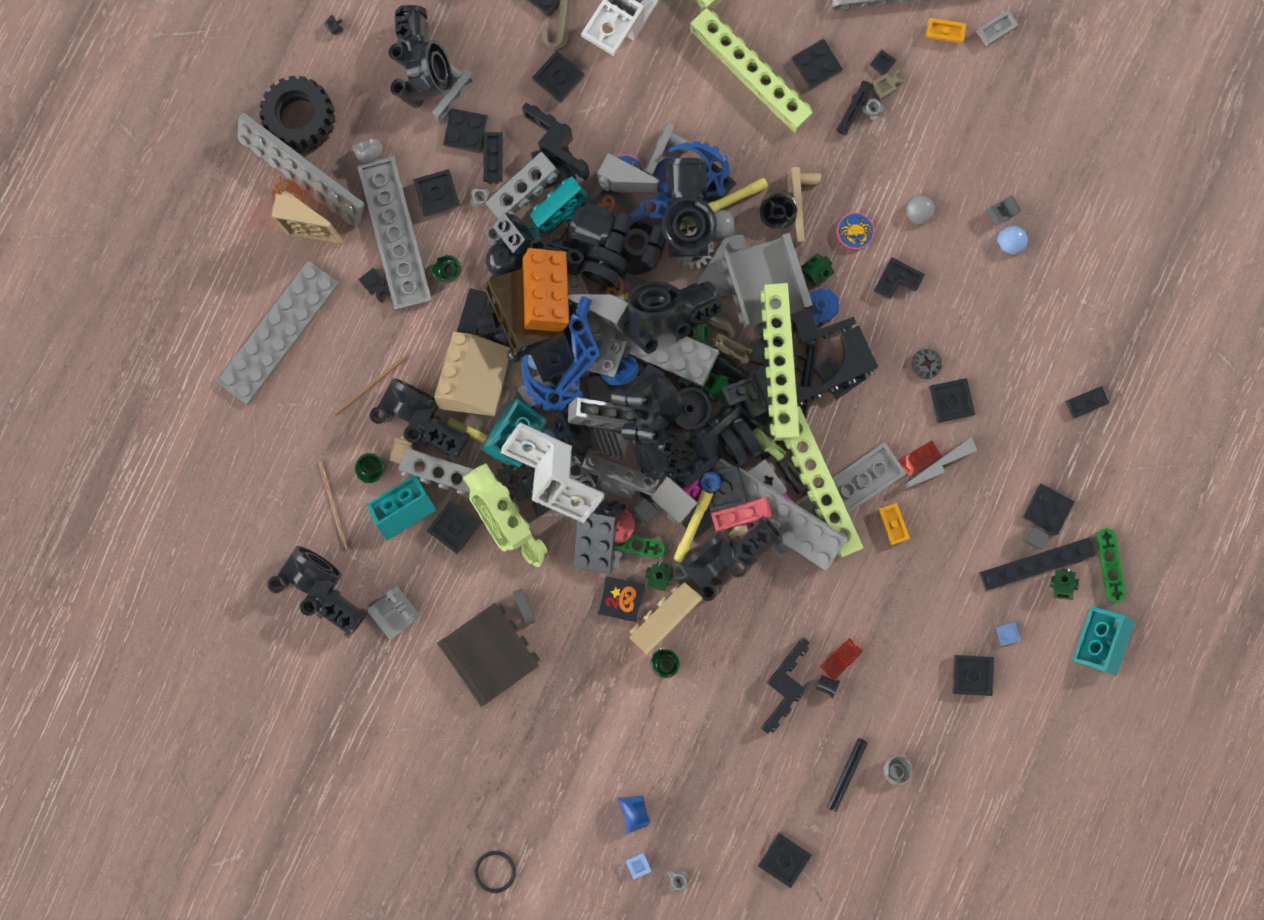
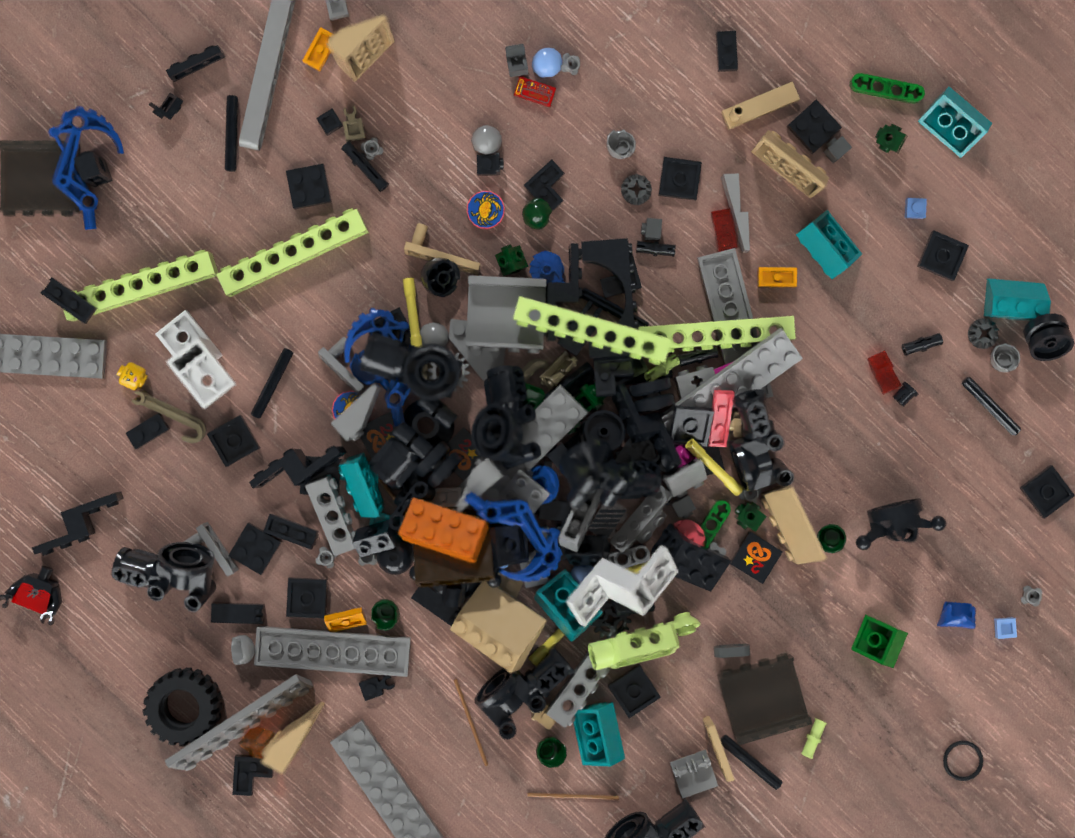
camera: 75 degrees left, 5 degrees up
(257, 193) = (245, 769): none -> black plate
(333, 25) = (105, 641): black piece -> none
(399, 135) = (237, 613): none -> black hinge
(423, 663) = (751, 762): none -> black axle
(426, 624) = (718, 749): none -> tan tile
(428, 234) = (345, 620): none -> light orange plate
(467, 716) = (813, 738): none -> yellowish green pin
(582, 746) = (879, 641): none -> green slope
(624, 93) = (272, 383): none -> black axle
(710, 482) = (681, 437): blue tile -> none
(710, 717) = (896, 521): none -> black piece
(785, 686) = (891, 433): black bracket -> none
(869, 278) = (536, 213): none -> dark green hair
(878, 400) = (655, 248): none -> black pin
(881, 686) = (922, 344): none -> black pin
(895, 390) = (652, 229): none -> dark grey plate
(898, 220) = (489, 164): none -> black bracket
(905, 745) = (974, 333): none -> dark grey gear
(933, 802) = (1048, 337): none -> black wheel
(943, 562) = (829, 244): none -> teal slope
(957, 762) = (1016, 299): none -> teal slope
(962, 332) = (620, 144): none -> light grey hair
(963, 62) = (360, 45): none -> tan slope
(981, 238) = (535, 91): none -> red tile
(1005, 496) = (790, 164): none -> tan slope
(1023, 265) = (575, 61): none -> light grey plate
(1037, 563) = (861, 156): black plate -> none
(1048, 451) = (760, 105): none -> tan piece

